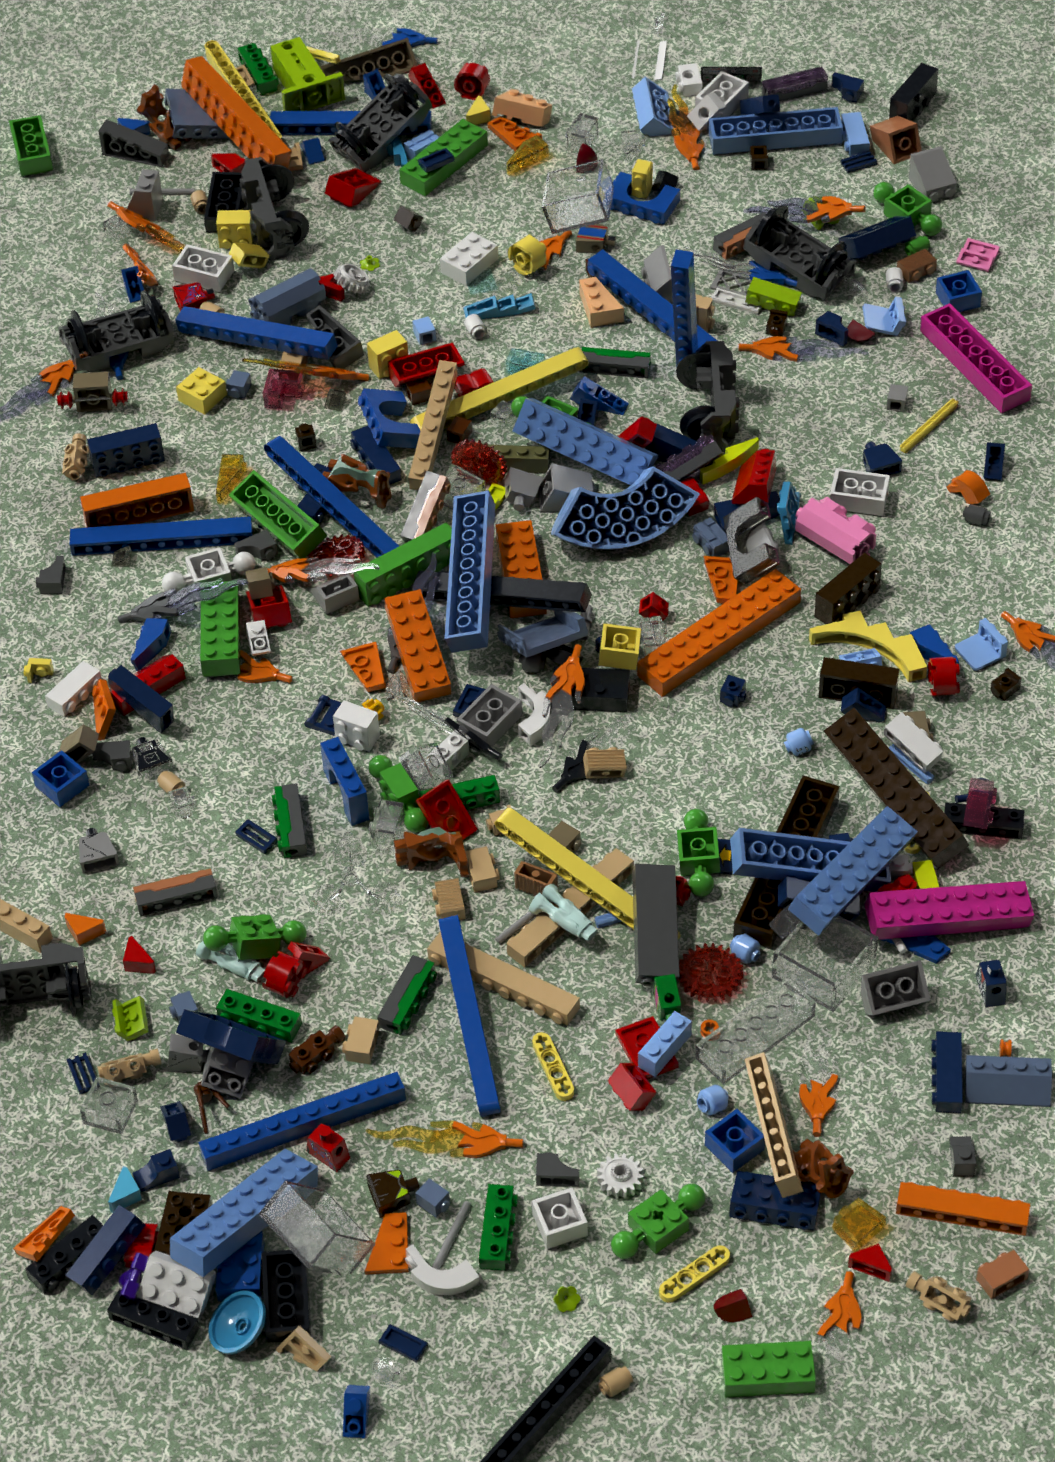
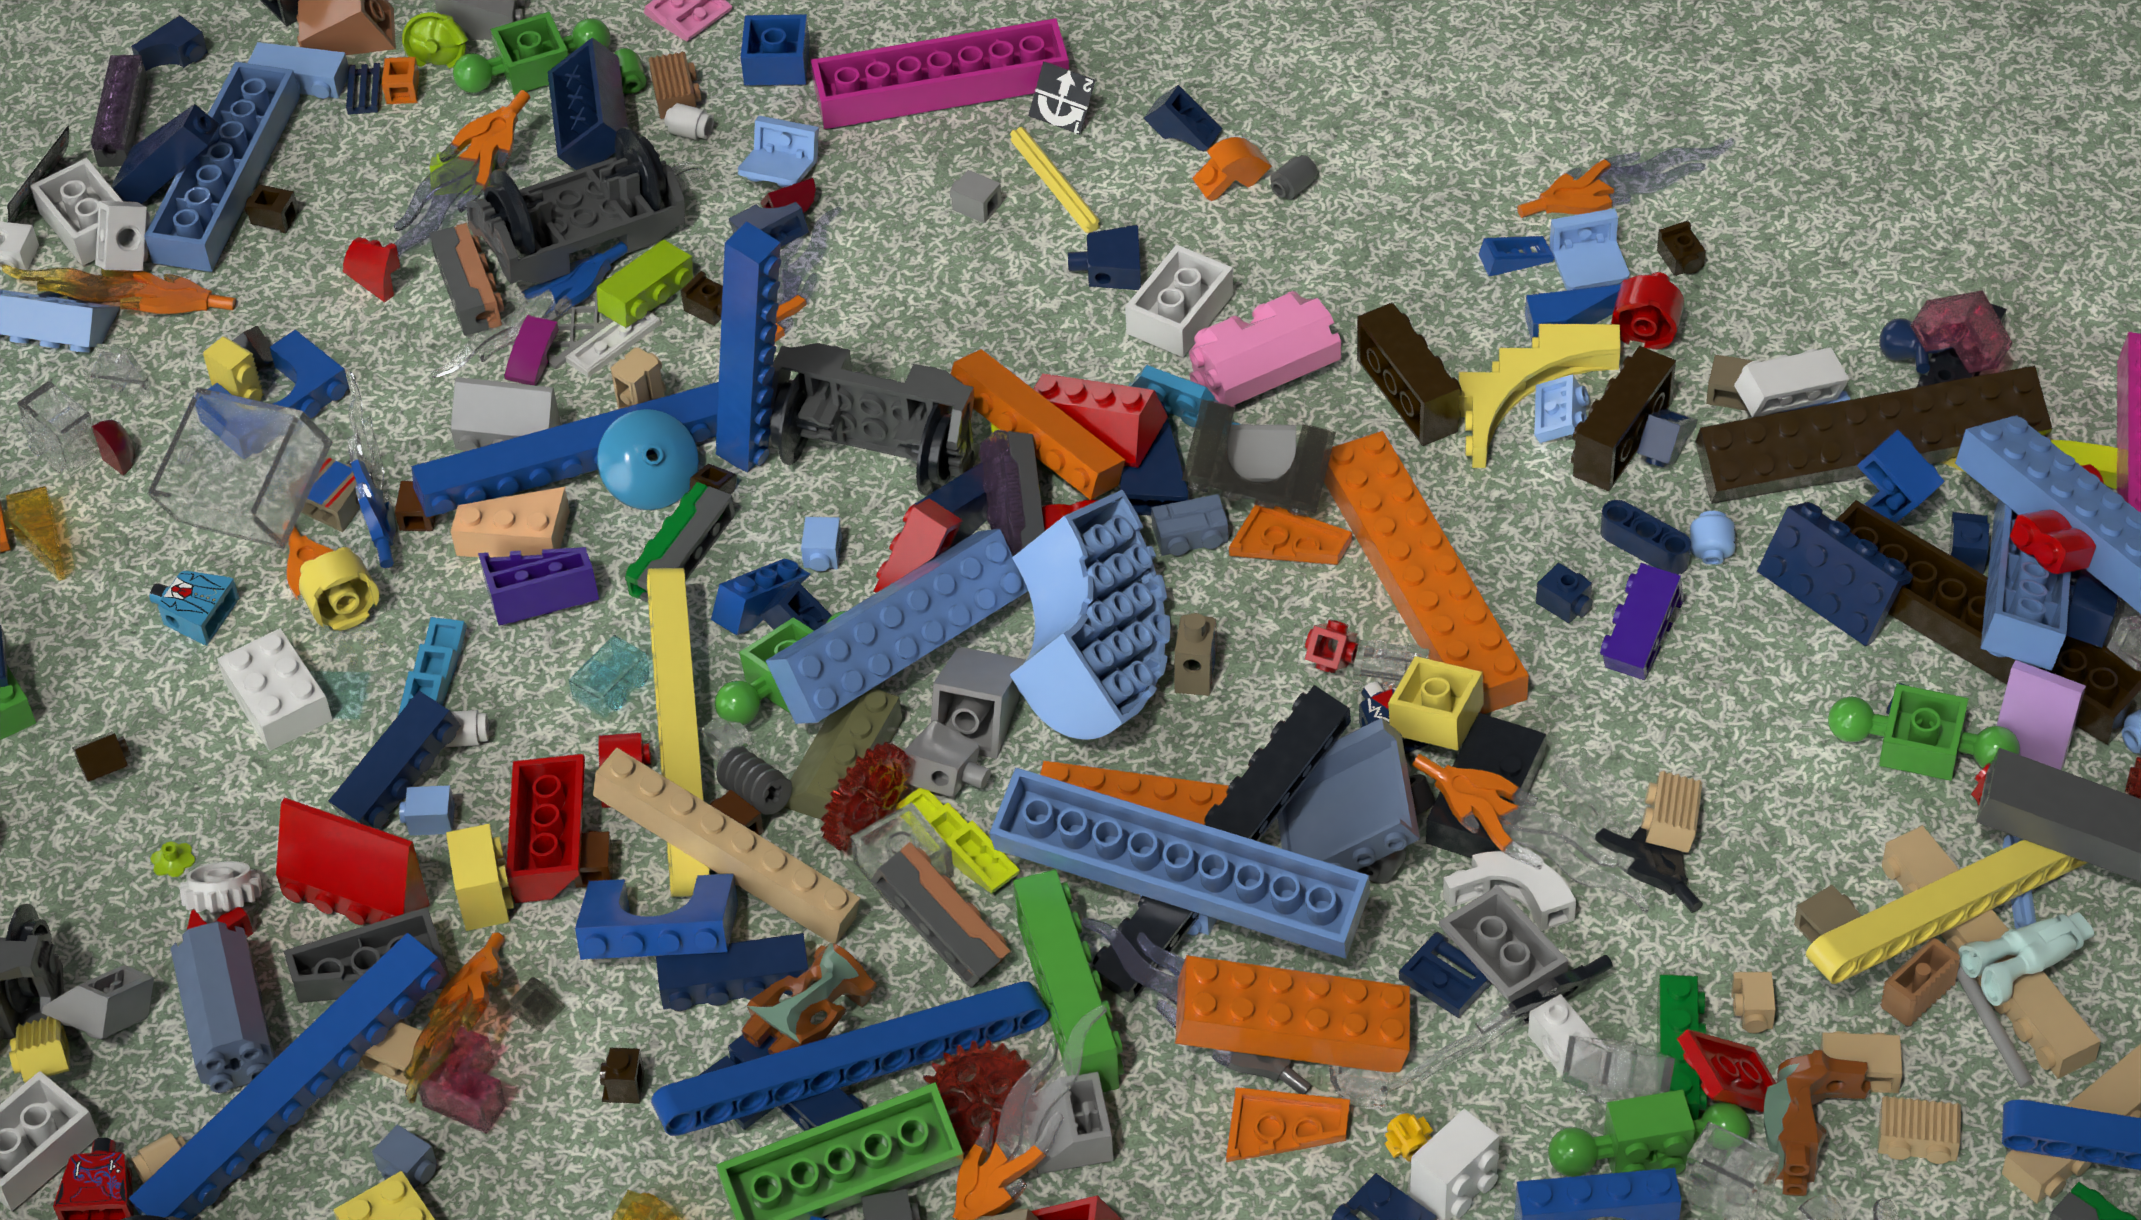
camera: 70 degrees left, 0 degrees up
(277, 265) = (105, 1002): none -> light grey slope
(372, 311) = (346, 866): none -> red slope
(441, 307) = (395, 762): none -> dark blue brick
(482, 426) = (753, 780): none -> dark grey piece
(506, 218) = (195, 603): none -> dark azure torso
(564, 318) = (538, 583): none -> dark purple wedge
(610, 243) = (369, 475): none -> piece
(626, 559) = (1195, 641): none -> dark tan torso
(636, 408) = (821, 543): none -> light blue brick
(658, 362) = (715, 478): none -> dark brown brick
(660, 340) = (632, 475): none -> dark azure dish
(712, 271) = (530, 350): none -> magenta slope
(719, 889) = (2041, 712): none -> lavender tile
(724, 723) = (1642, 621): none -> dark purple wedge
(737, 203) = (372, 266): none -> red slope
(738, 455) = (1056, 437): none -> orange brick
(786, 714) = (1645, 537): none -> dark blue beam
(792, 789) = (1833, 571): none -> dark blue bracket
(819, 855) = (2053, 541): none -> red brick
(861, 799) = (1900, 477): none -> blue brick
(867, 170) = (400, 80): none -> orange brick
(898, 170) = (434, 39): none -> lime piece
(957, 613) = (1498, 261): none -> blue slope
(982, 408) = (1061, 97): none -> black sticker

